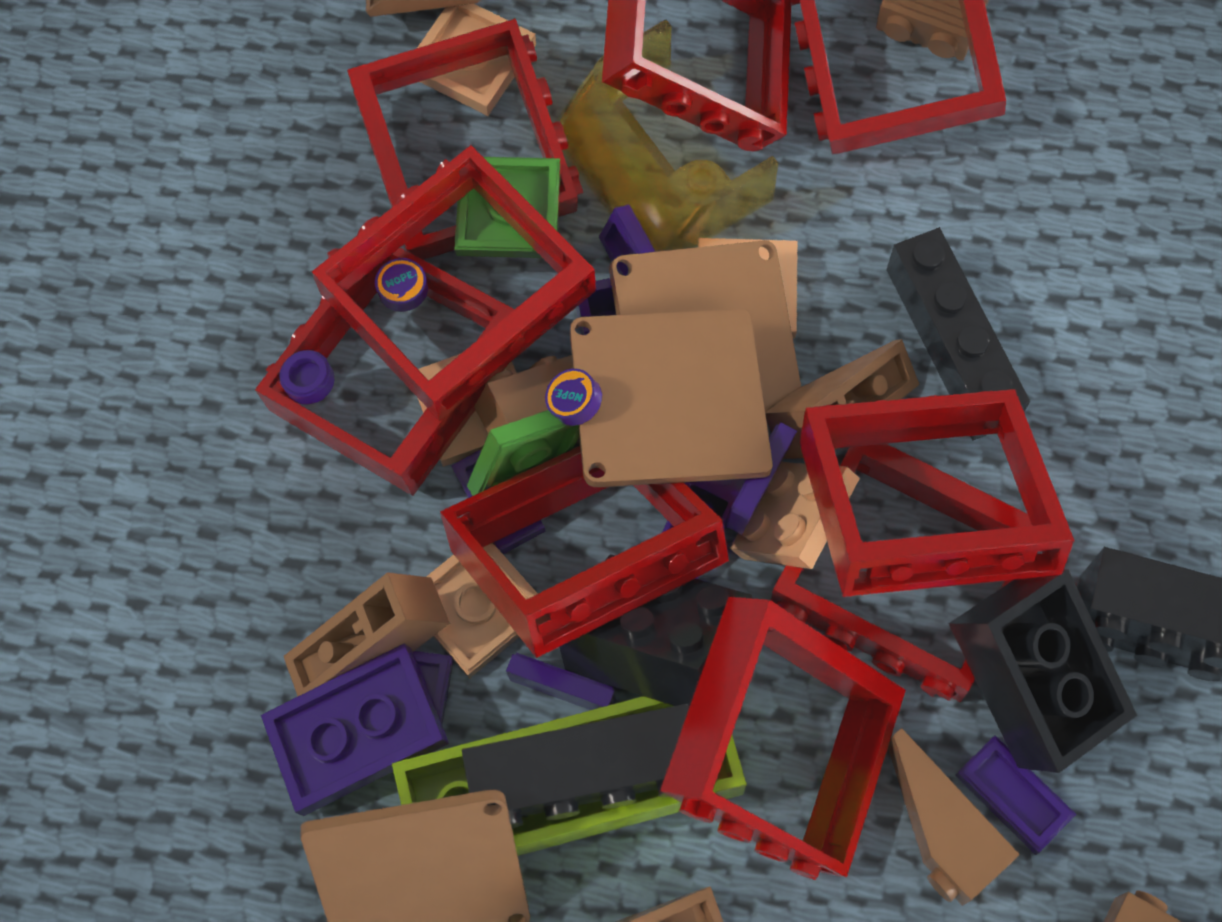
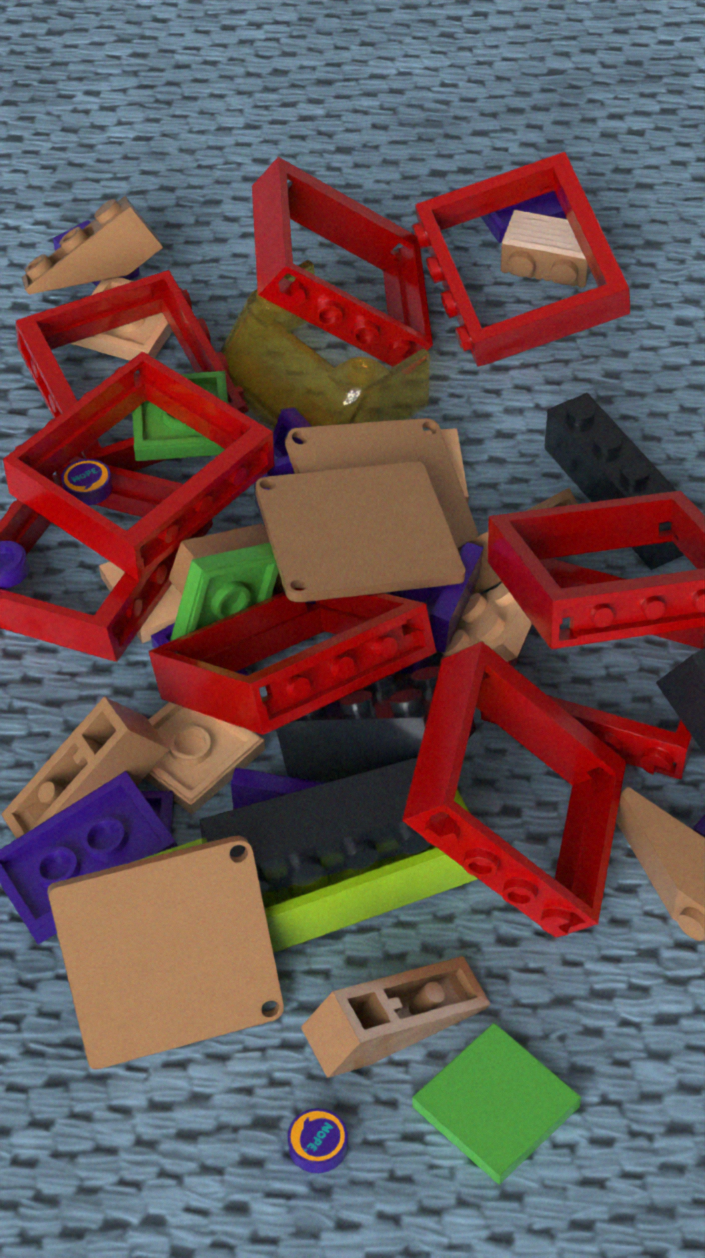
camera: 10 degrees left, 20 degrees down
(573, 397) = (267, 529): dark purple tile -> none

